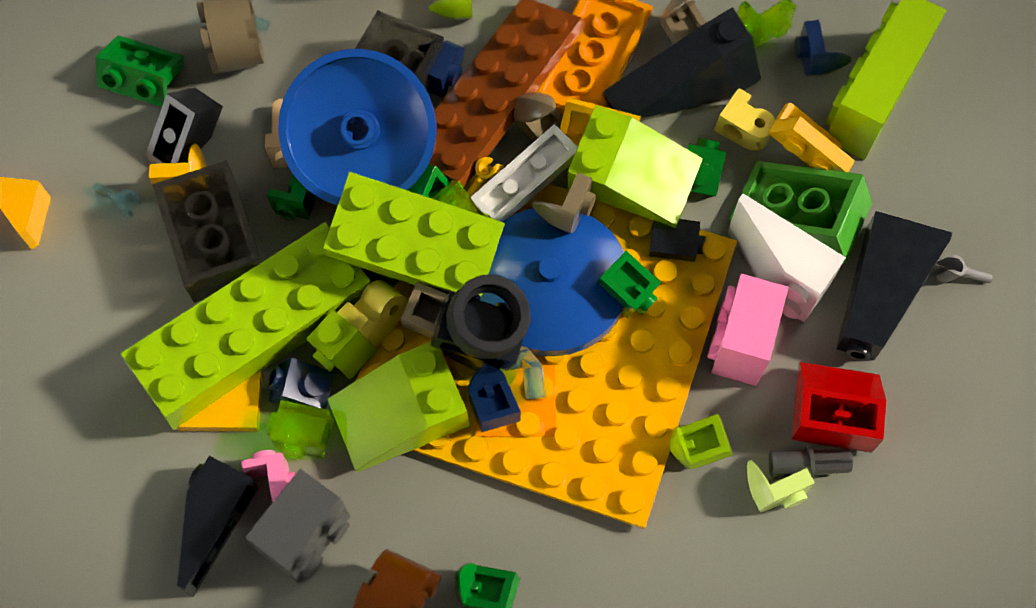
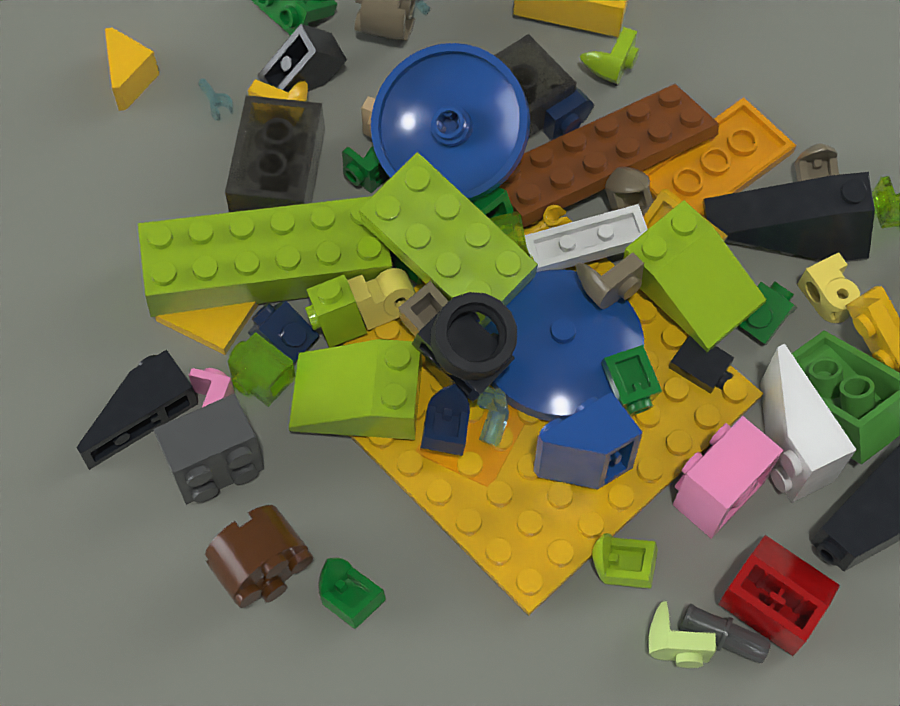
camera: 25 degrees right, 5 degrees down
(628, 361) = (589, 445): none -> blue slope

